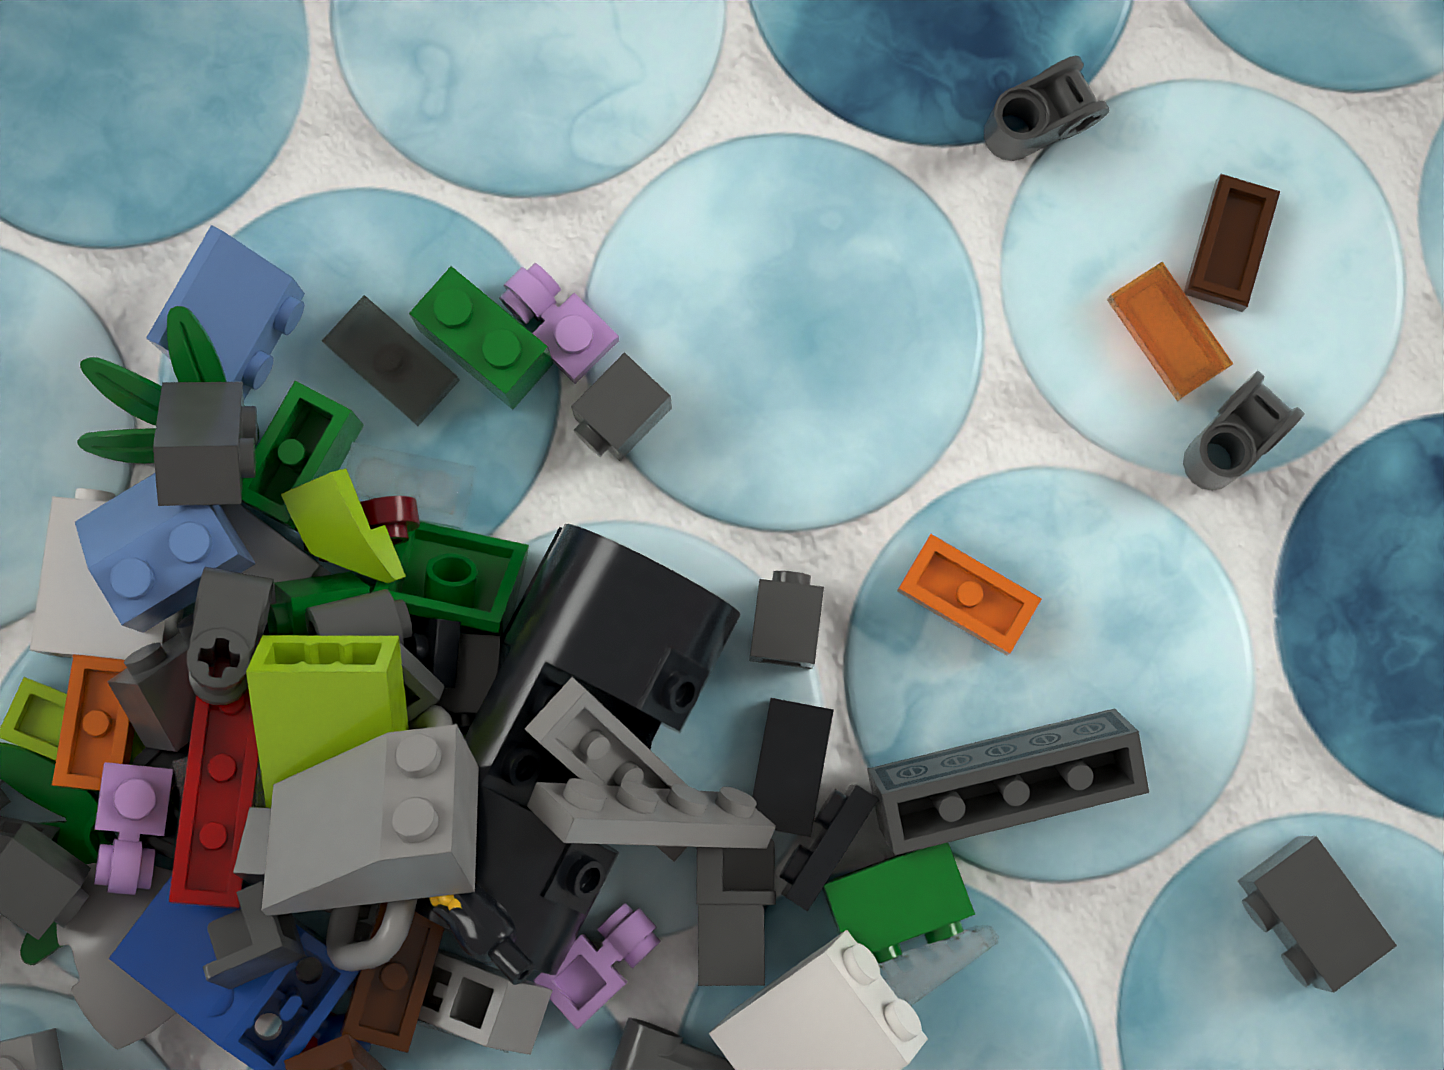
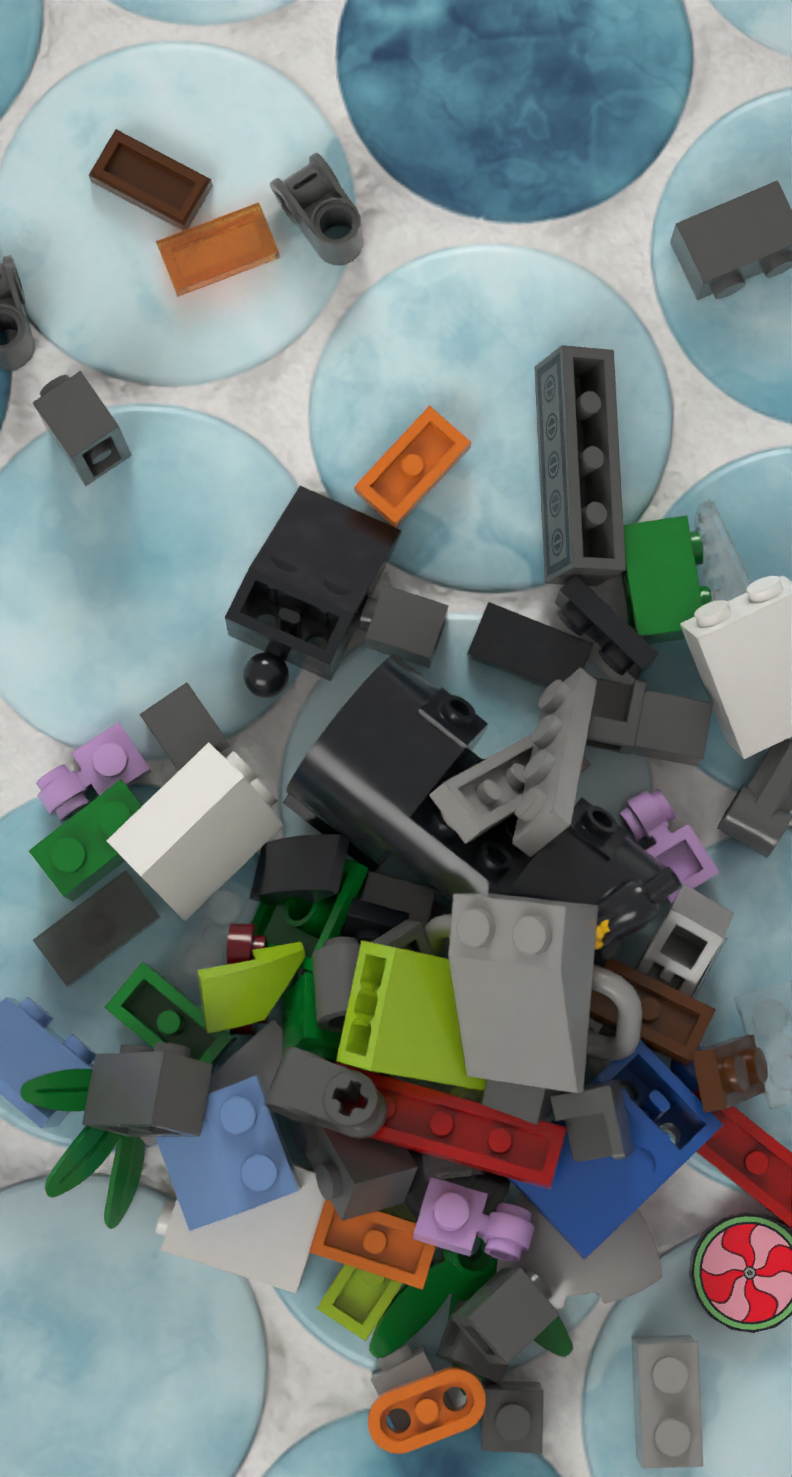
camera: 75 degrees left, 0 degrees up
(487, 560) = (300, 867): none -> black slope
(507, 439) = (198, 829): none -> white brick
(819, 514) = (314, 582): none -> black slope
(929, 221) = (81, 426): none -> dark grey brick

